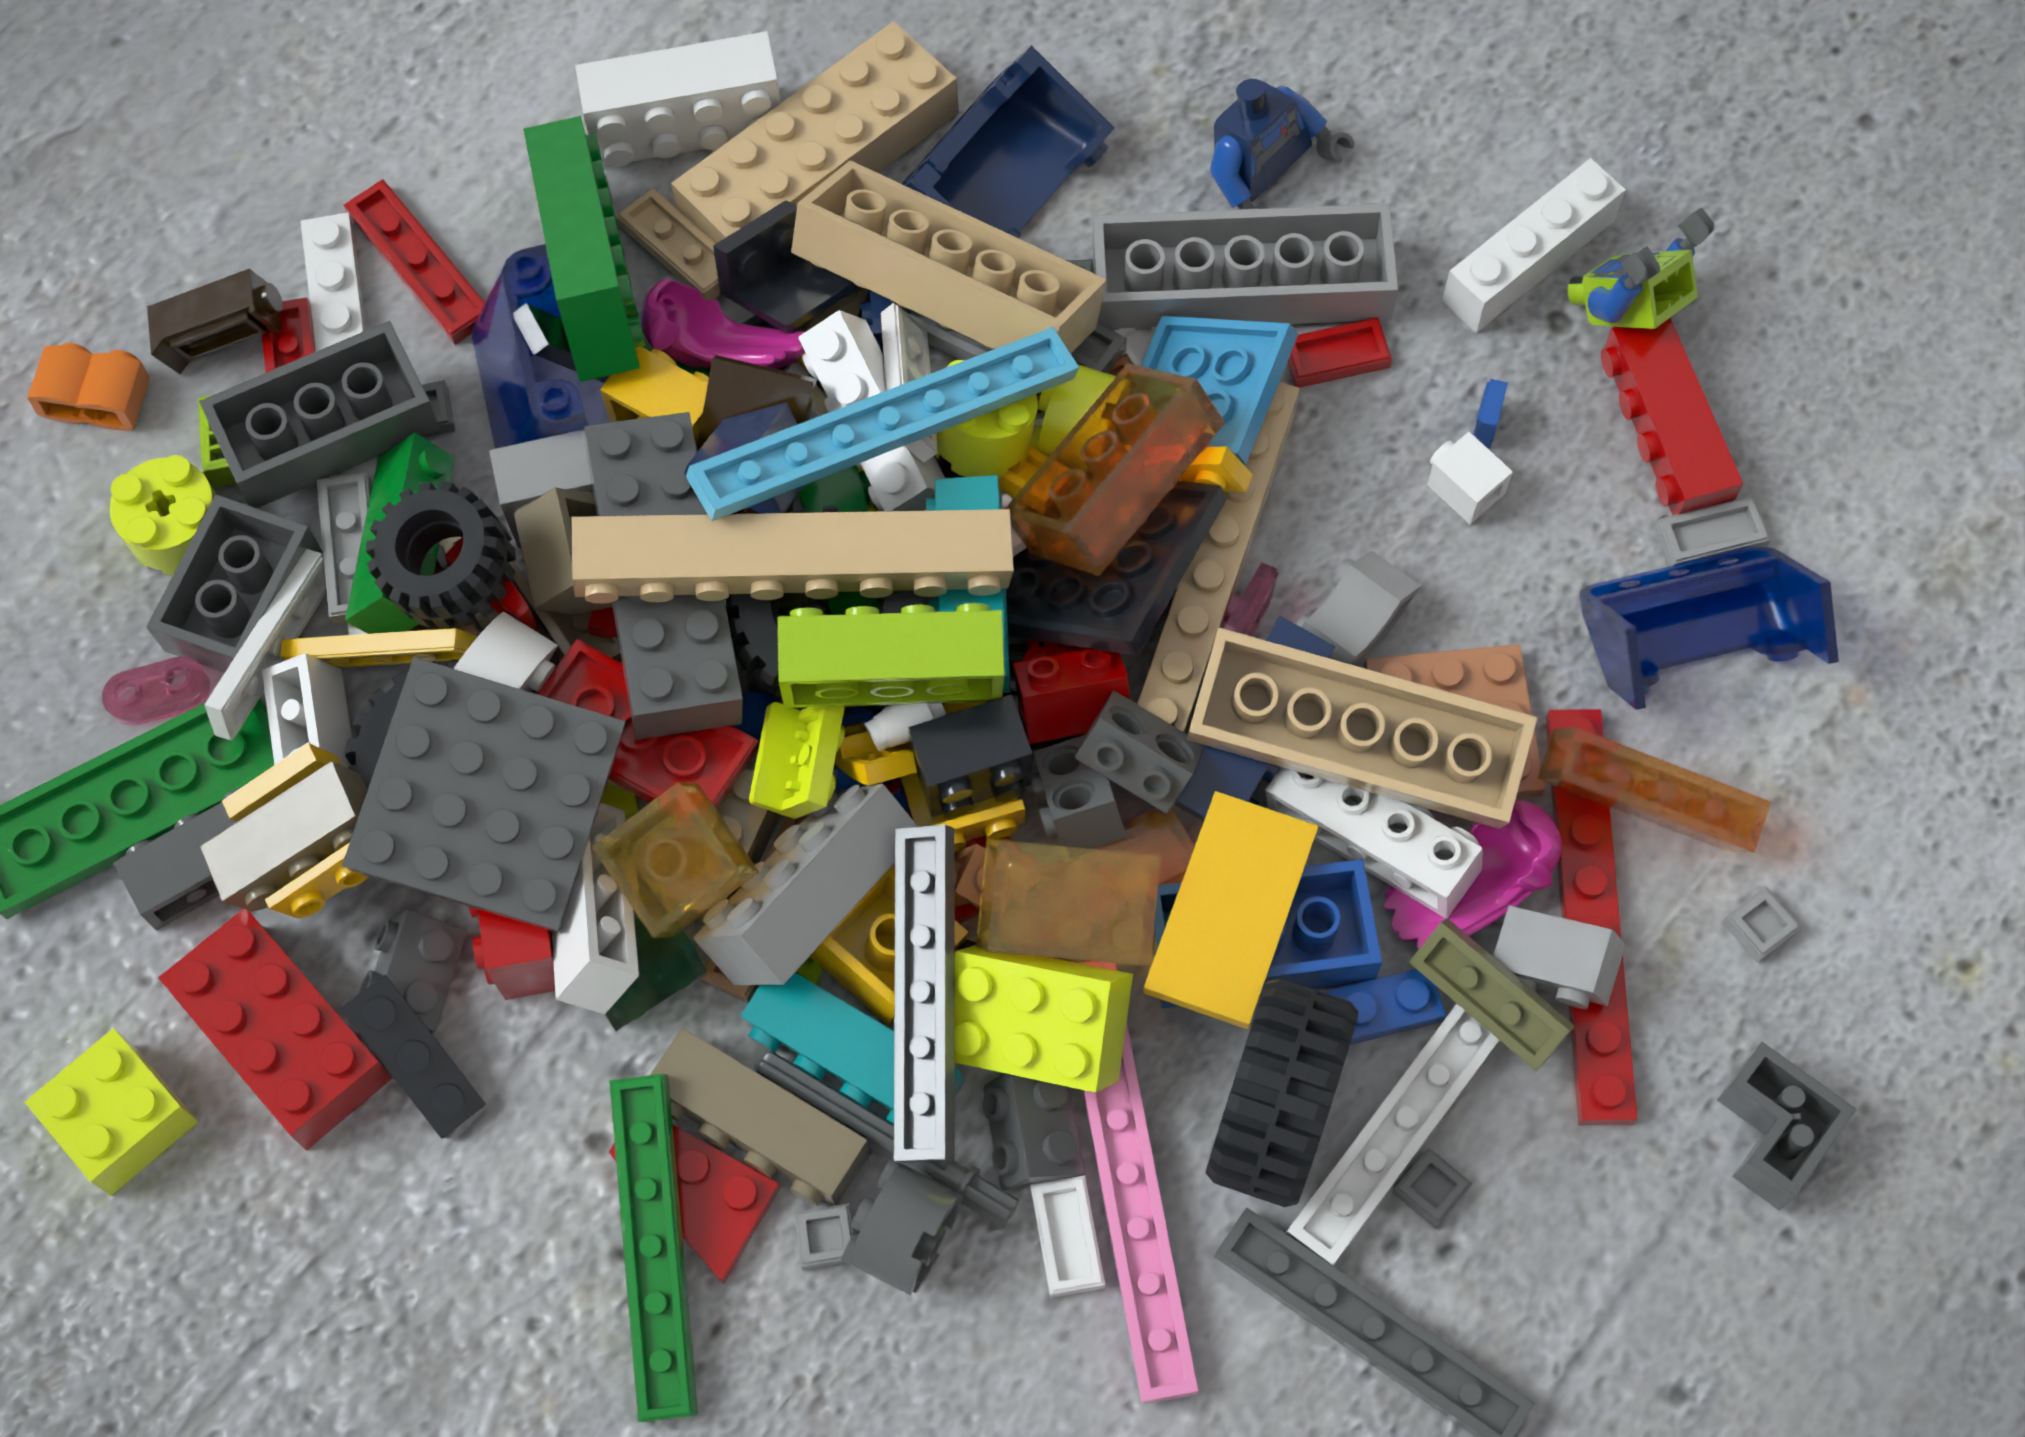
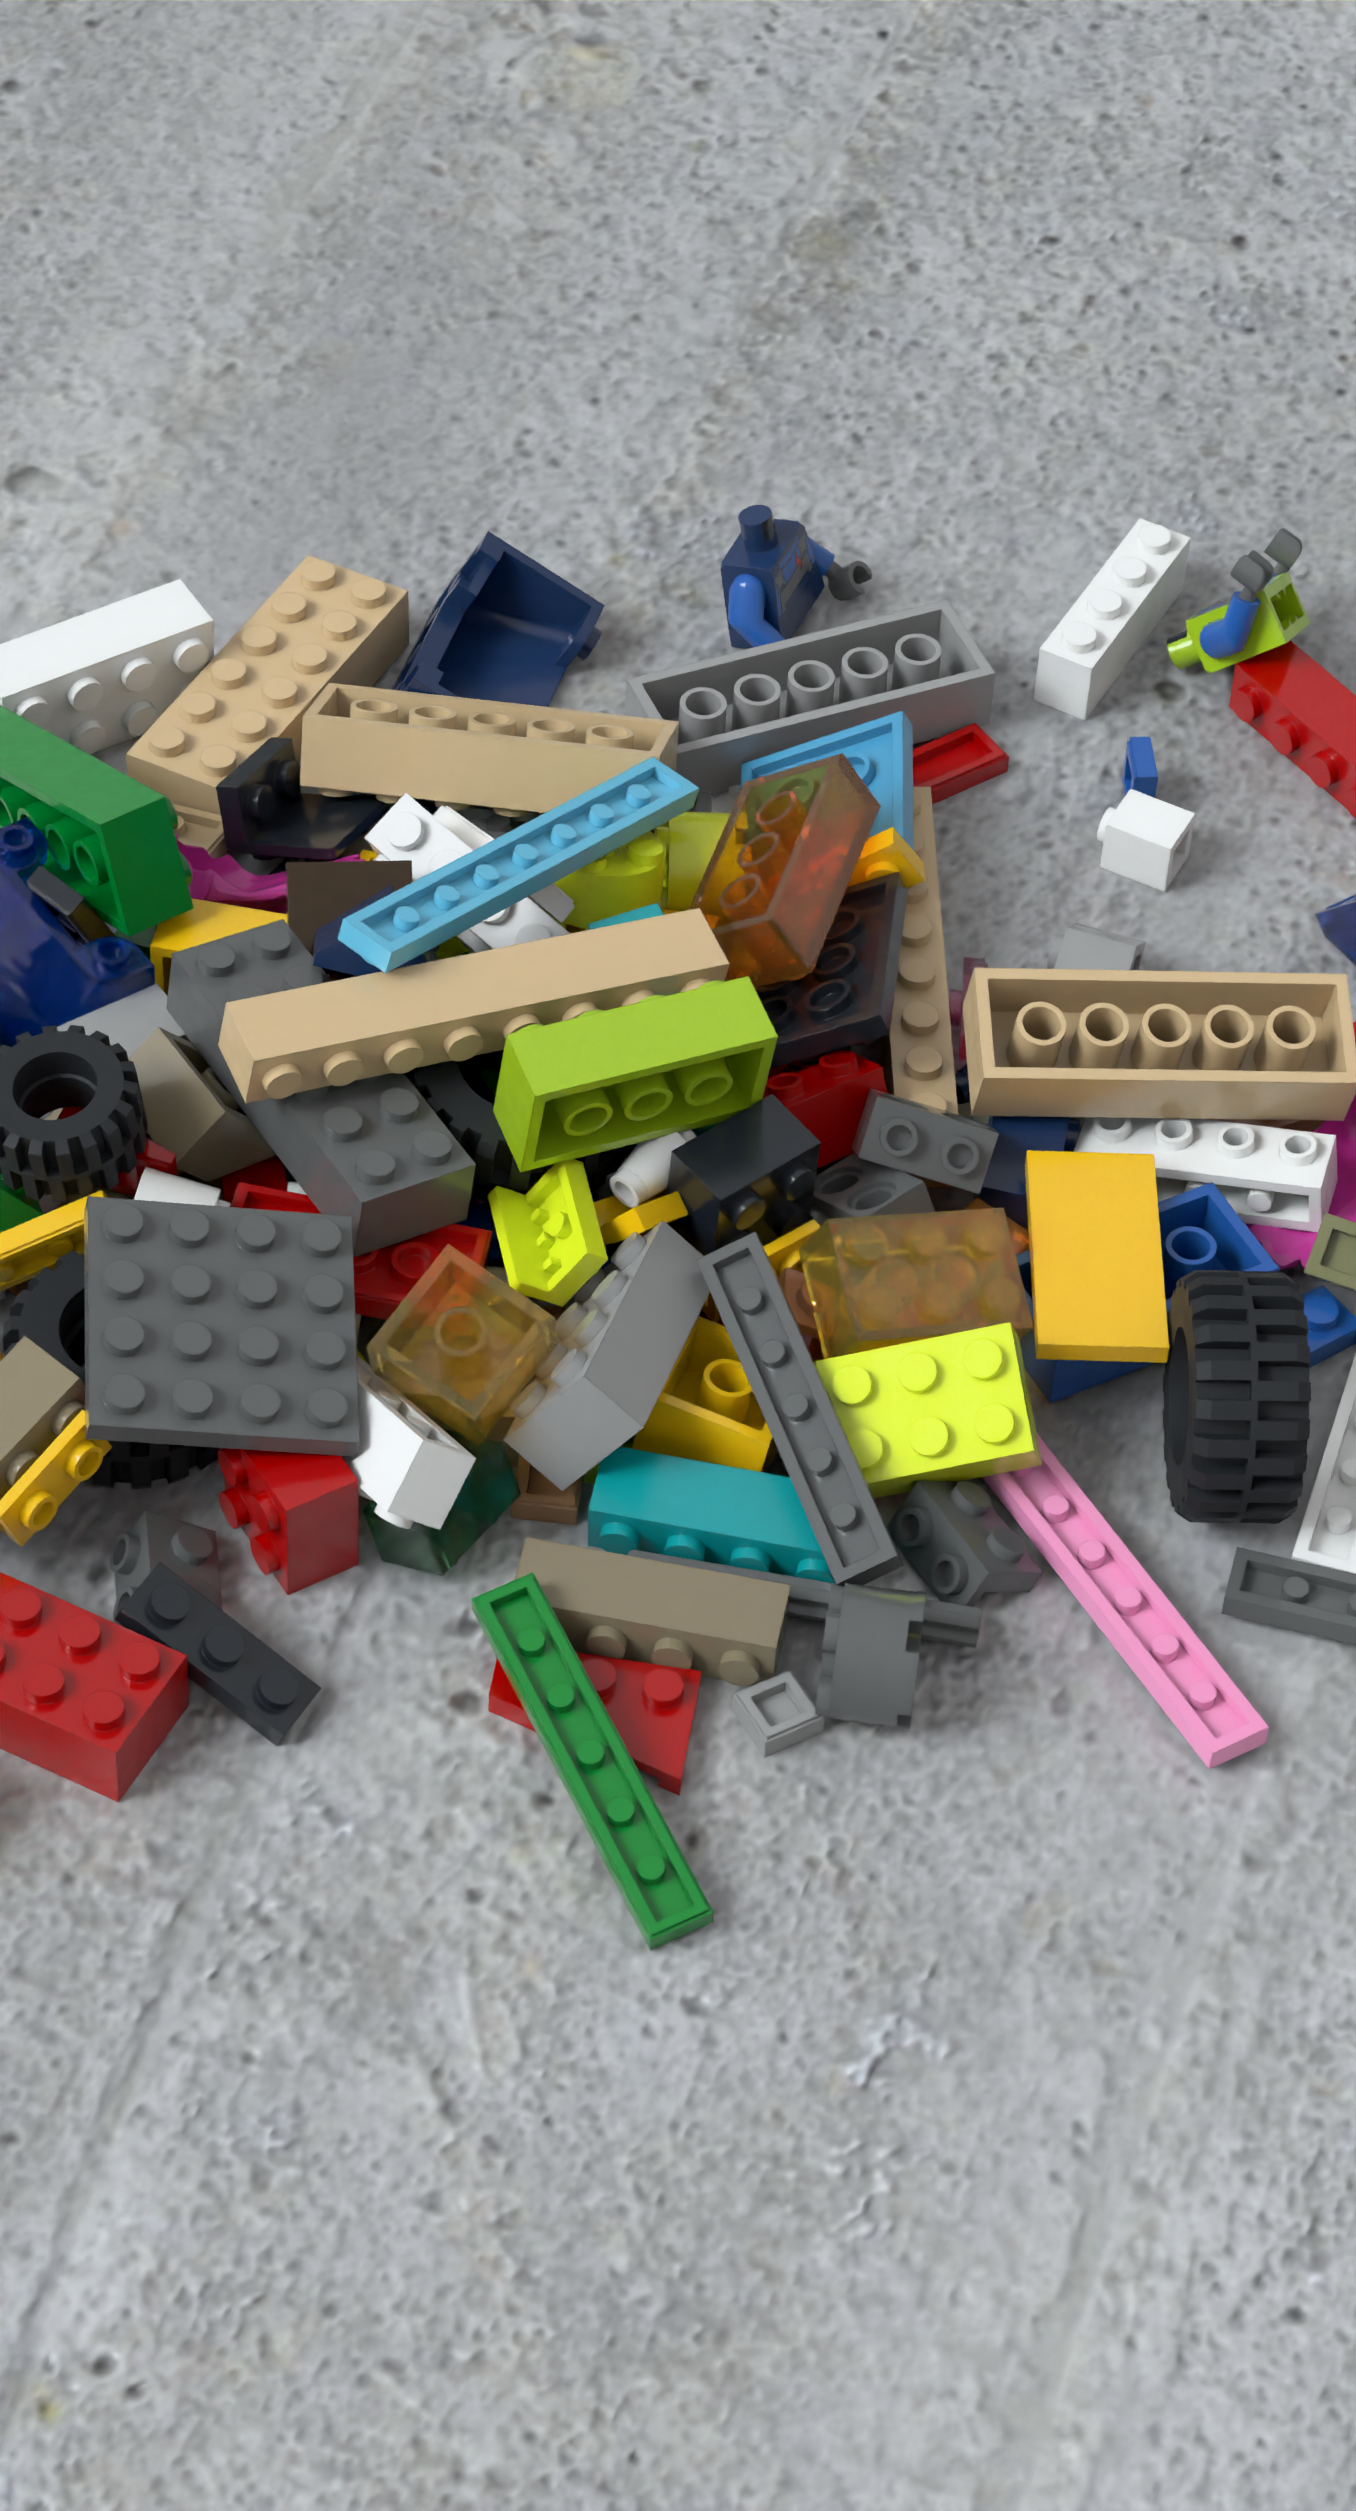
camera: 25 degrees left, 20 degrees down
(1067, 1236) = (1050, 1639): white tile -> none

